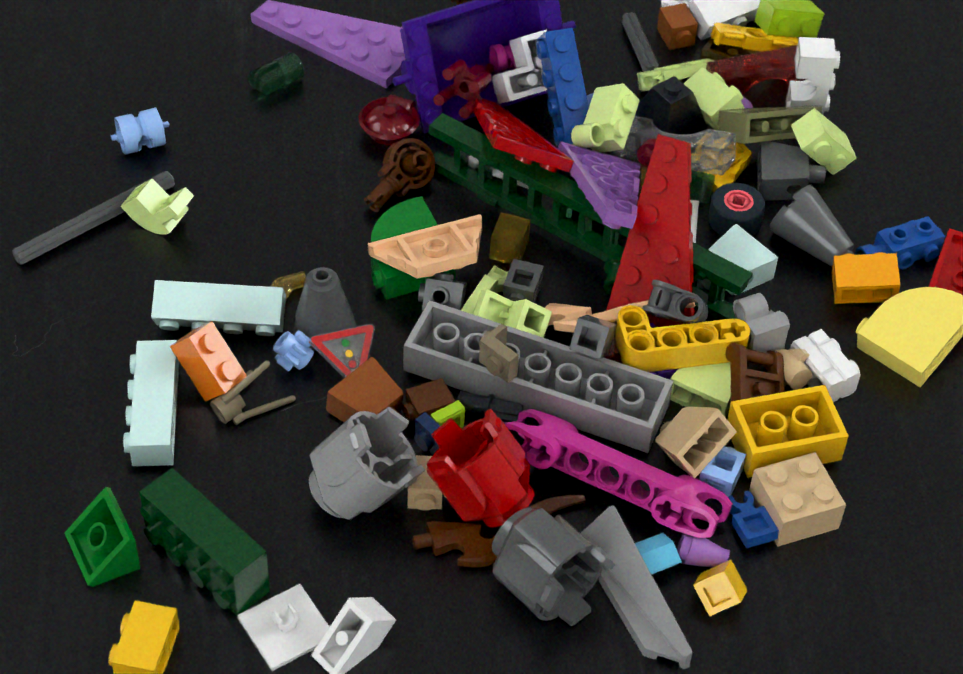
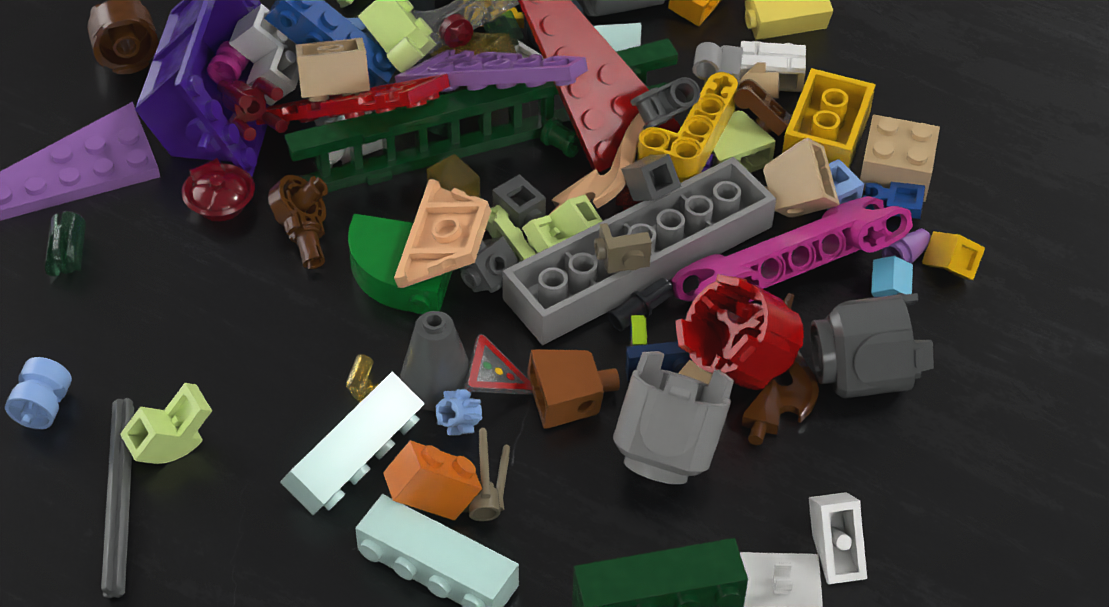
camera: 55 degrees left, 0 degrees up
(426, 398) = (609, 342): reddish brown brick -> none
(526, 101) = (332, 68): none -> tan brick
(636, 592) = (939, 313): light grey wedge -> none

